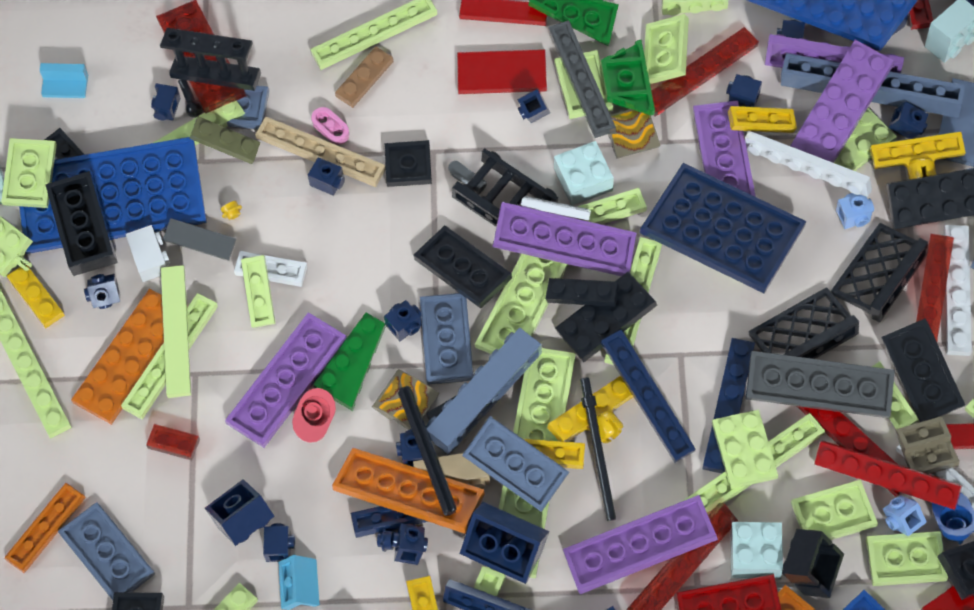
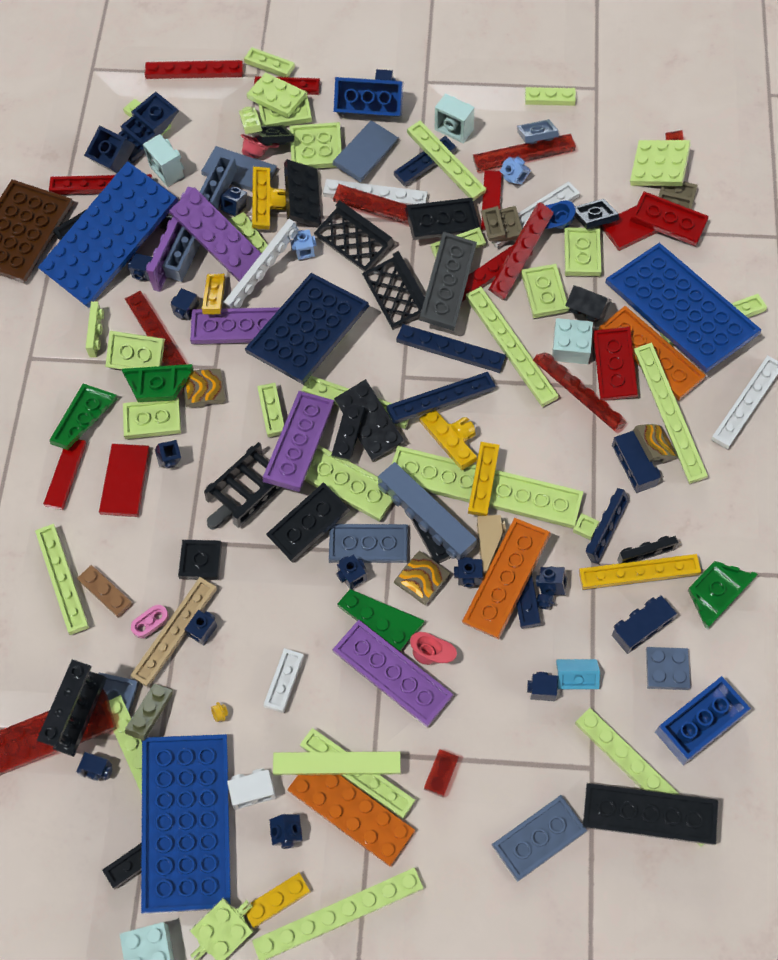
camera: 85 degrees left, 0 degrees up
(27, 171) = (153, 895): yellowish green plate -> none
(44, 528) = (512, 894): orange tile -> none
(64, 80) = (48, 867): medium azure panel -> none
(81, 223) = (218, 843): black brick -> none
(193, 106) = (103, 744): black bar -> none
(199, 239) = (245, 741): dark grey tile -> none
(239, 512) = (518, 712): dark blue brick -> none
(258, 291) = (307, 689): yellowish green plate -> none
(427, 451) = (479, 554): black axle -> none
(503, 542) = (559, 506): dark blue slope -> none
(515, 463) = (494, 492): sand blue tile -> none
(557, 208) = (269, 443): white tile -> none
(582, 79) = (148, 416): dark grey tile -> none
(583, 173) = (236, 424): light aqua brick -> none
(589, 403) = (449, 433): black bar -> none
(639, 544) = (565, 414): medium lavender plate -> none
(744, 449) = (492, 337): yellowish green plate -> none
(904, 515) = (552, 245): light blue brick -> none

